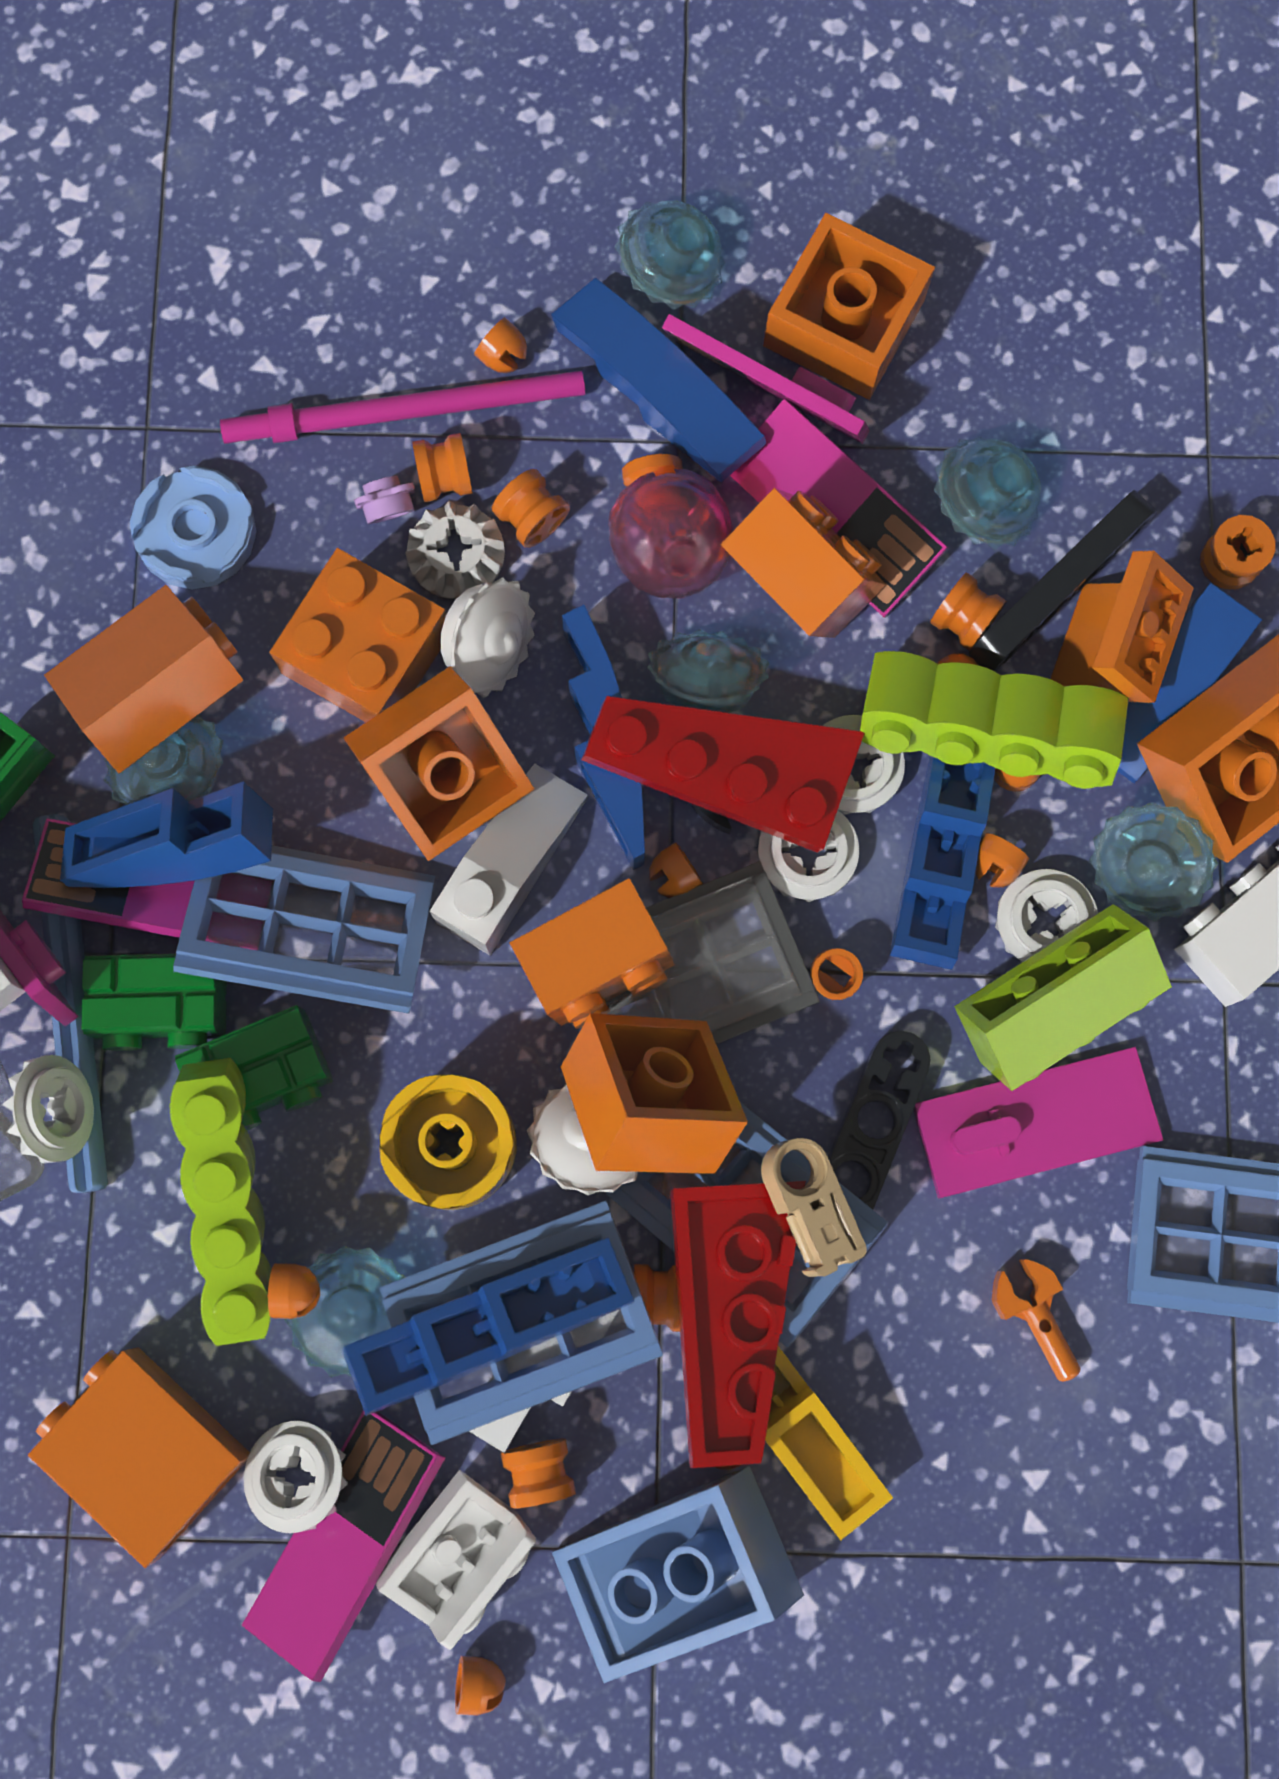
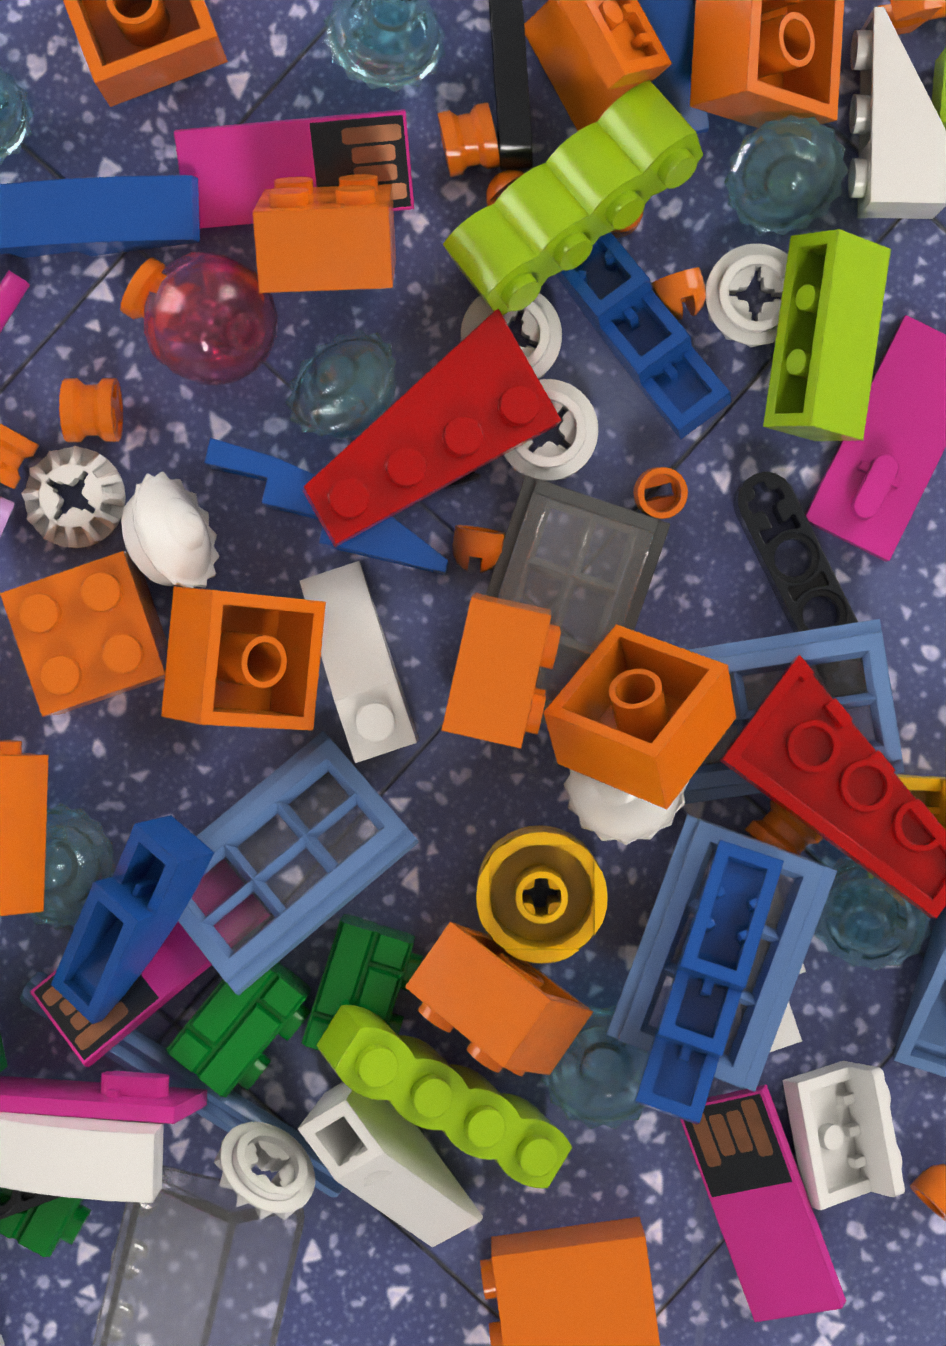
camera: 45 degrees left, 10 degrees up
(132, 1209) = (388, 1164): none -> white slope
(272, 1497) = (684, 1228): white gear -> none
(292, 1291) = (555, 1100): orange hinge -> none
(332, 1177) = (497, 1002): none -> orange brick
(538, 1473) = (834, 1025): orange wheel -> none
(645, 1425) = (869, 920): none -> clear light blue piece
(804, 391) = (181, 110): dark pink piece -> none
(817, 1212) = (830, 668): tan piece -> none

